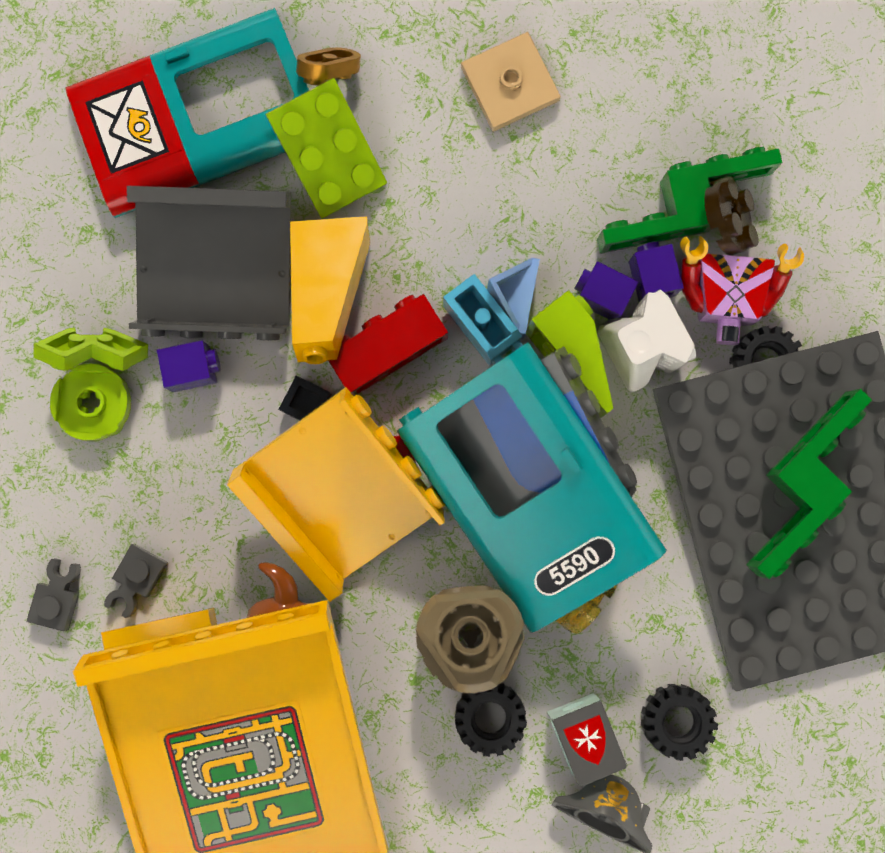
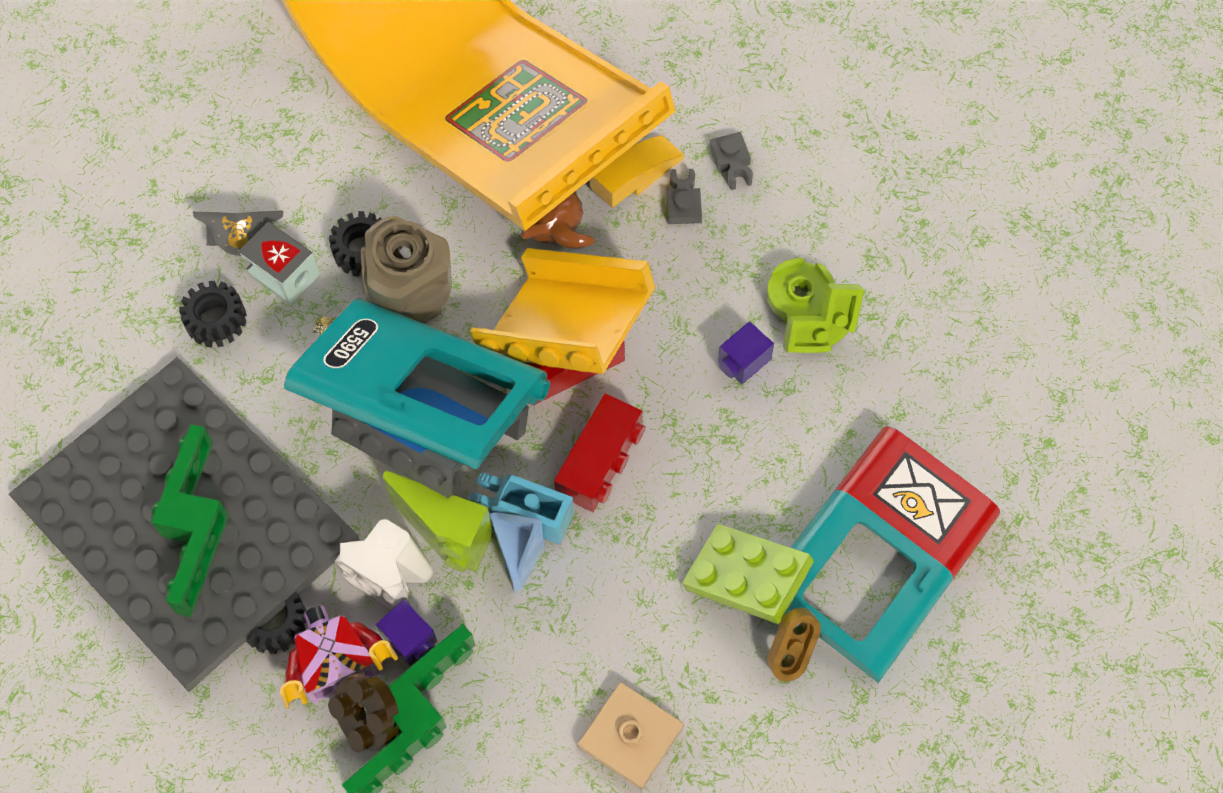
camera: 155 degrees right, 20 degrees down
(212, 261) = (777, 433): dark grey panel -> none
(303, 398) = (634, 380): black plate -> none
(324, 282) = (678, 462): yellow slope -> none
(606, 290) = (442, 594): dark purple brick -> none

